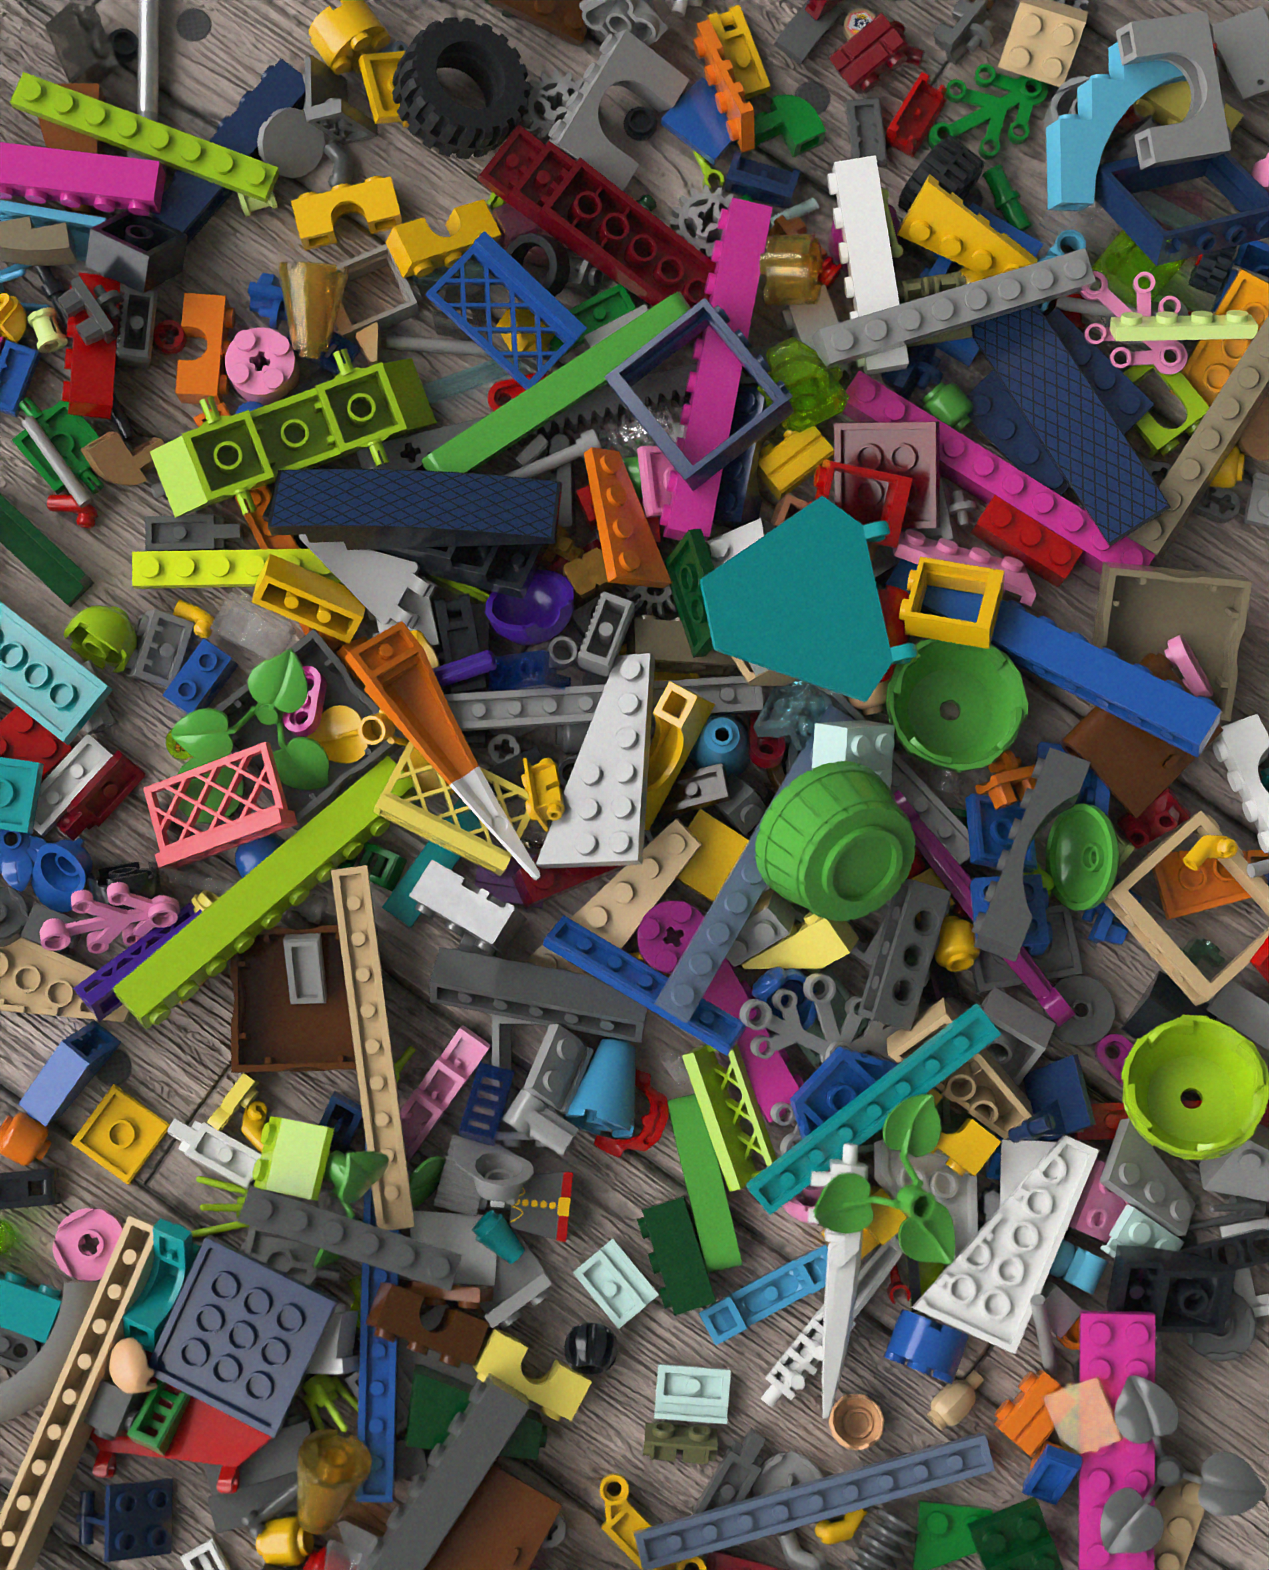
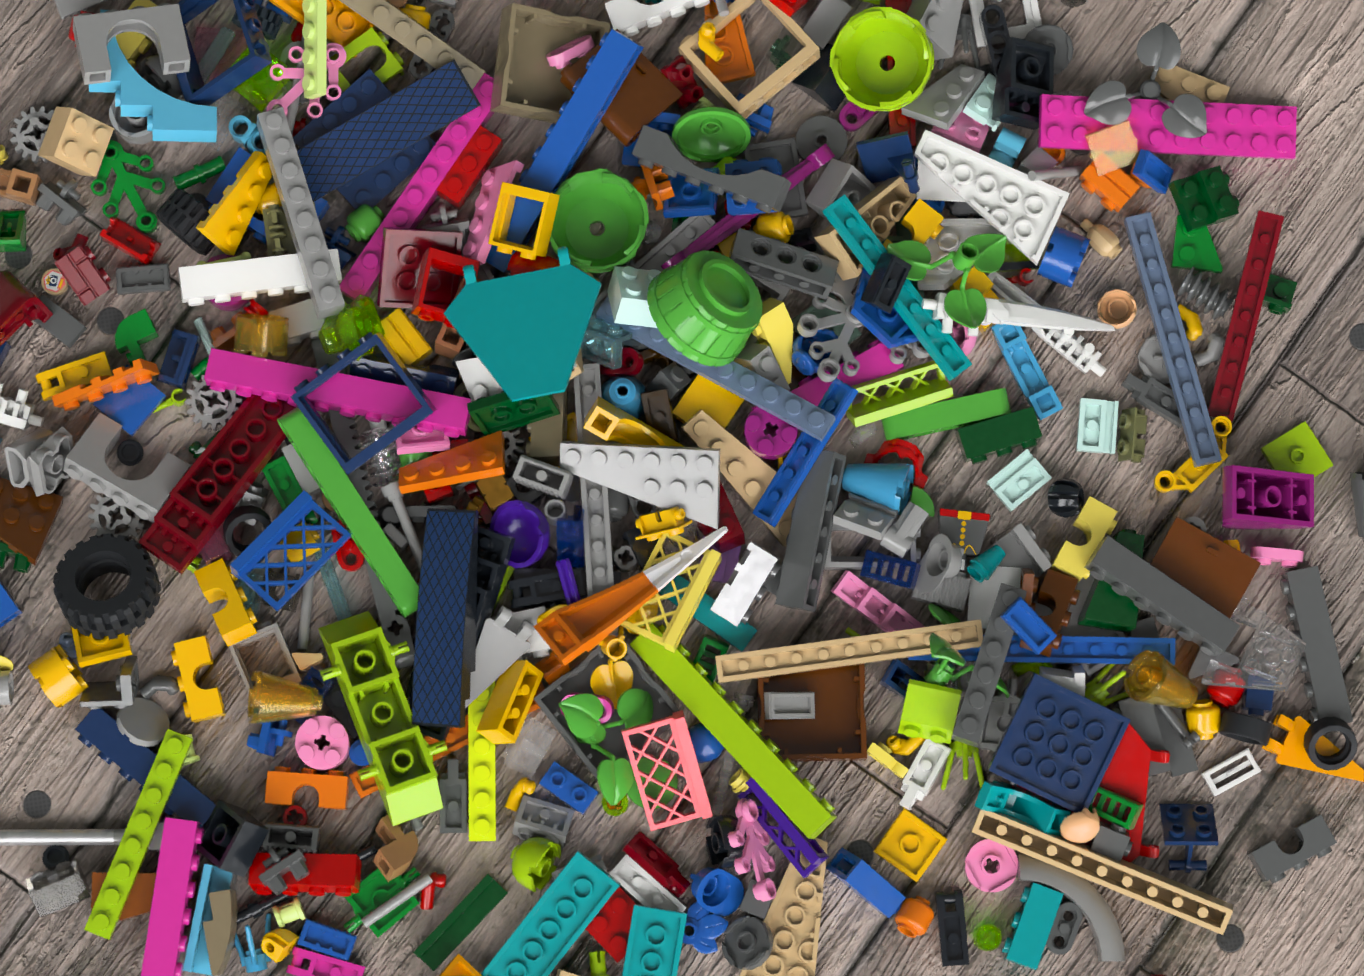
camera: 90 degrees left, 0 degrees up
(400, 1292) = (1028, 625): none -> blue tile
(585, 1149) = (922, 500): none -> bright green tile
(878, 1092) = (886, 282): none -> black slope

